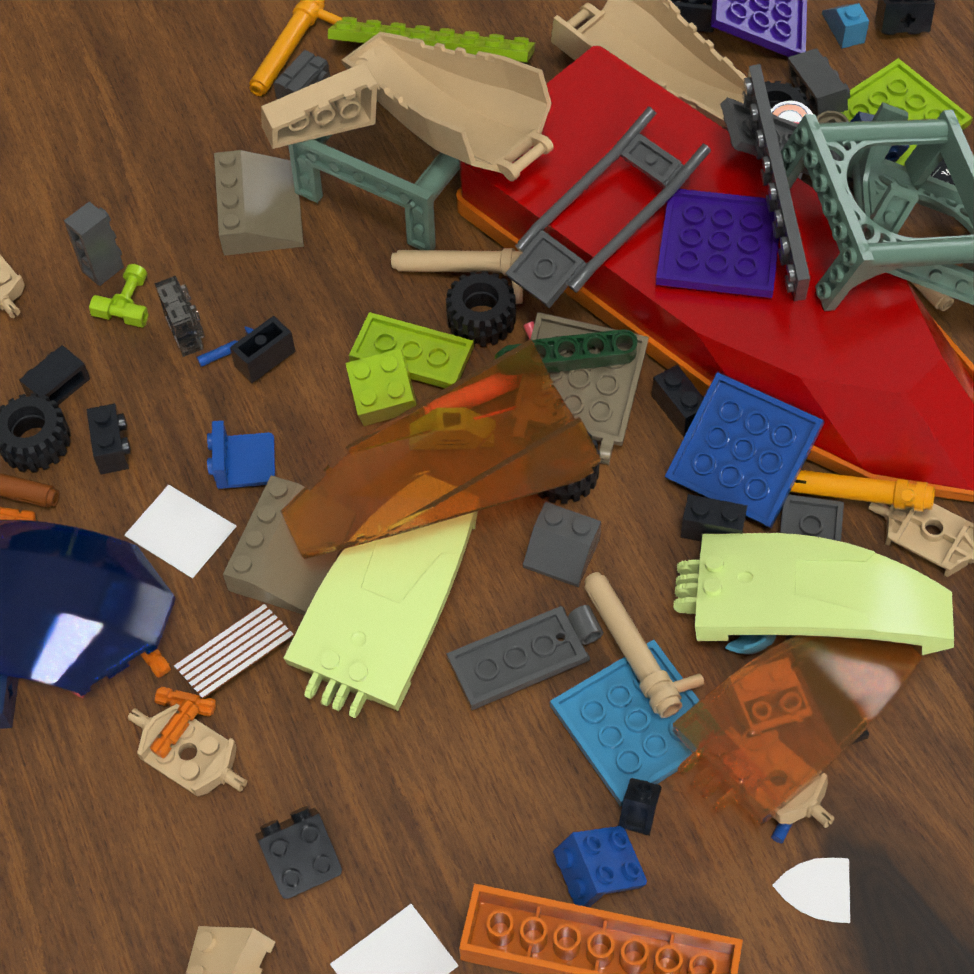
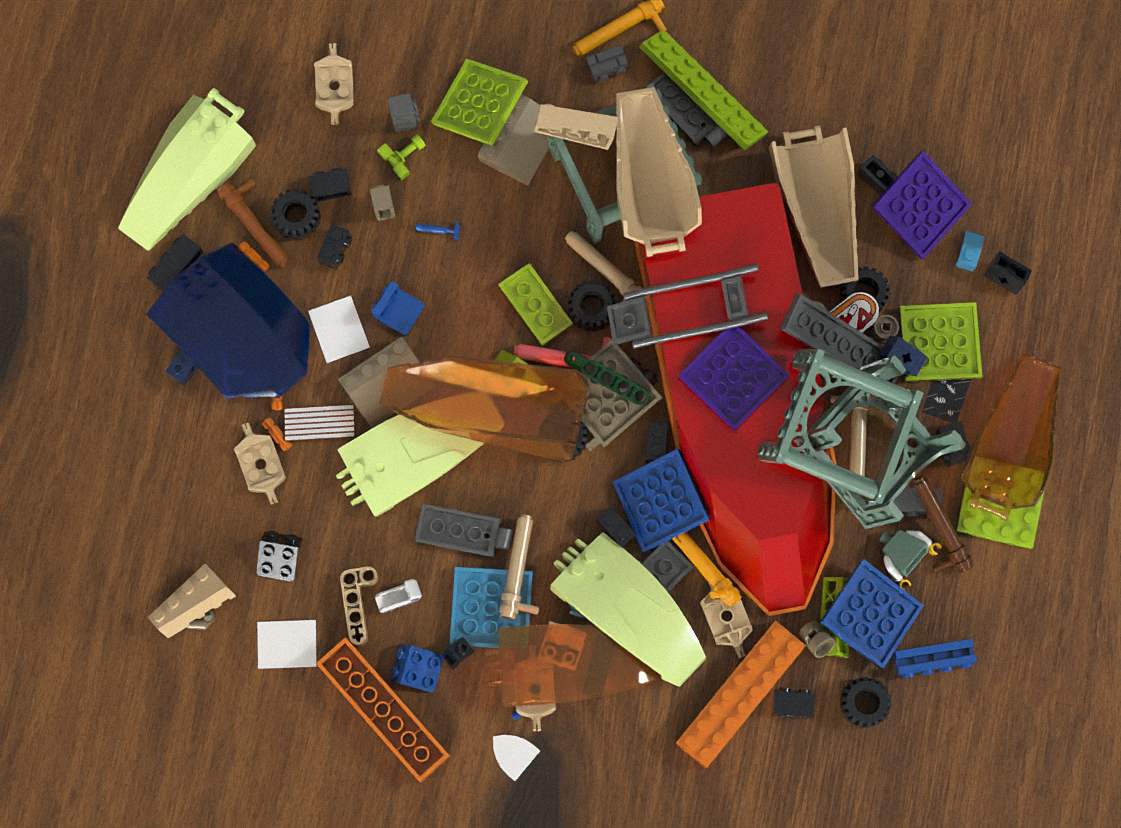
camera: 35 degrees right, 20 degrees up
(137, 352) = (382, 202): none -> dark tan brick
(174, 729) = (259, 449): orange axle -> none
(180, 315) = (421, 194): clear smoke piece -> none
(181, 187) = (479, 101): none -> lime plate
(262, 349) = (453, 248): black brick -> none
(381, 386) = (499, 320): lime brick -> none
(459, 841) = (357, 607): none -> tan beam
(505, 786) = (398, 596): none -> white animal
(562, 544) = (527, 484): dark grey slope -> none
(775, 177) = (783, 364): dark grey plate -> none
(819, 82) = (909, 288): dark grey brick -> none

